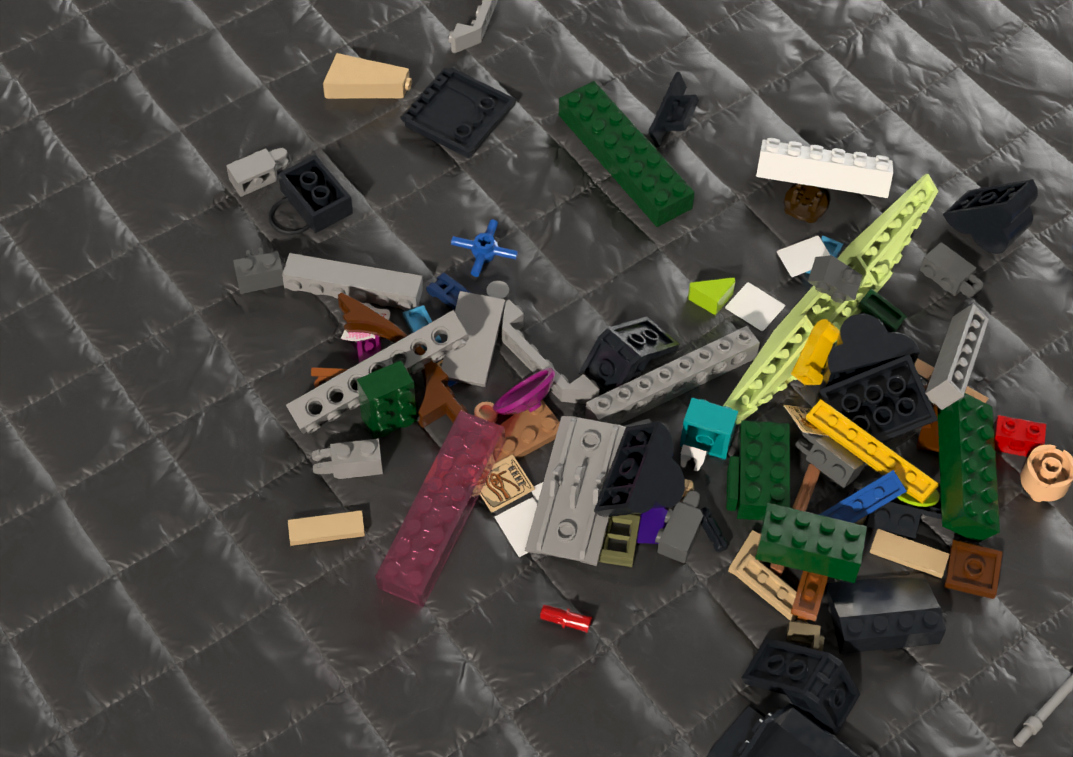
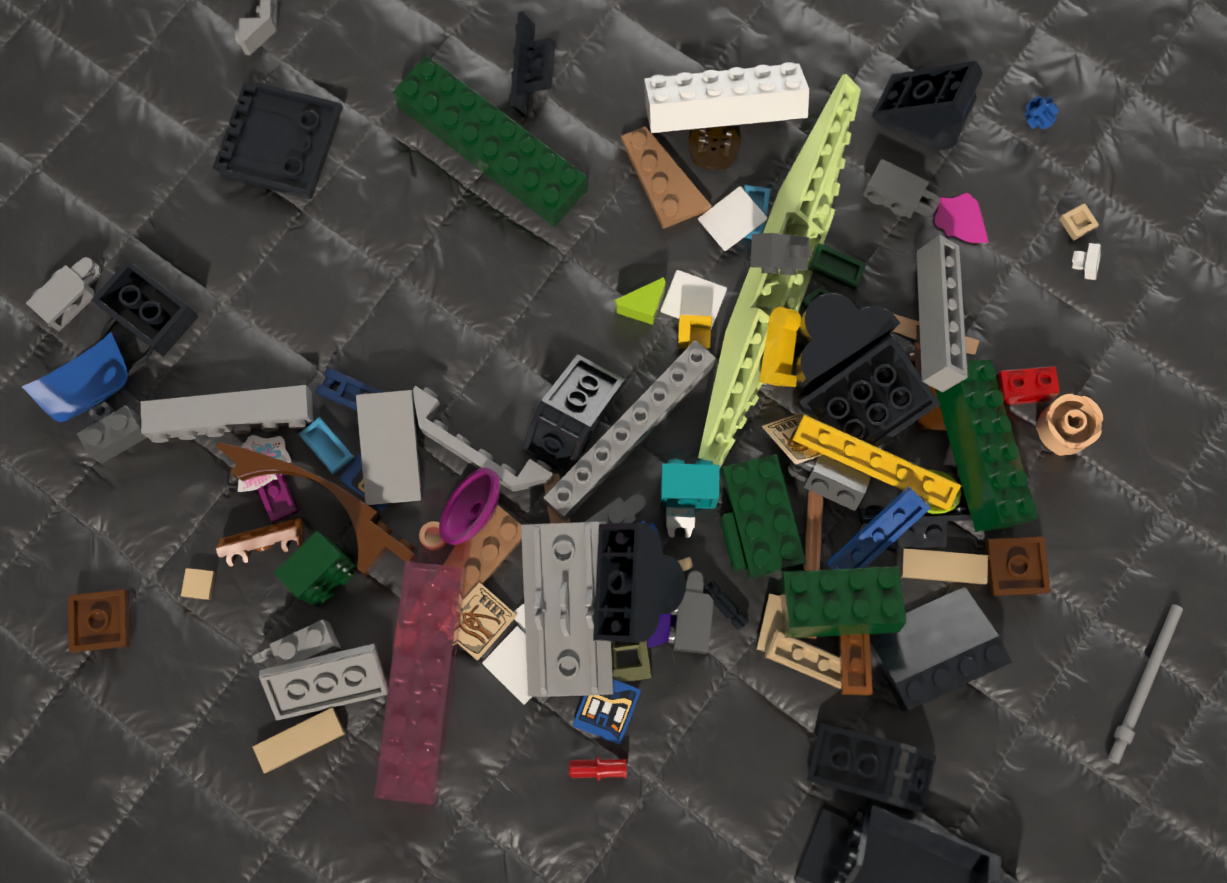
camera: 15 degrees left, 20 degrees up
(198, 397) = (98, 621): none -> reddish brown plate
(248, 232) = (81, 382): none -> blue piece
(284, 394) = (198, 584): none -> tan tile
(343, 383) = (223, 606): light grey brick -> none
(363, 486) = (324, 682): none -> light grey tile
(365, 79) = (152, 127): tan slope -> none
(484, 248) = (359, 315): blue bar -> none
(498, 290) = (399, 371): light grey tile -> none
(587, 581) = (608, 714): none -> sticker
(751, 319) = (694, 328): none -> yellow panel
(756, 218) = (664, 182): none -> medium nougat wing
(805, 633) = (856, 703): dark tan bracket -> none
(999, 307) = (961, 218): none -> dark pink sticker

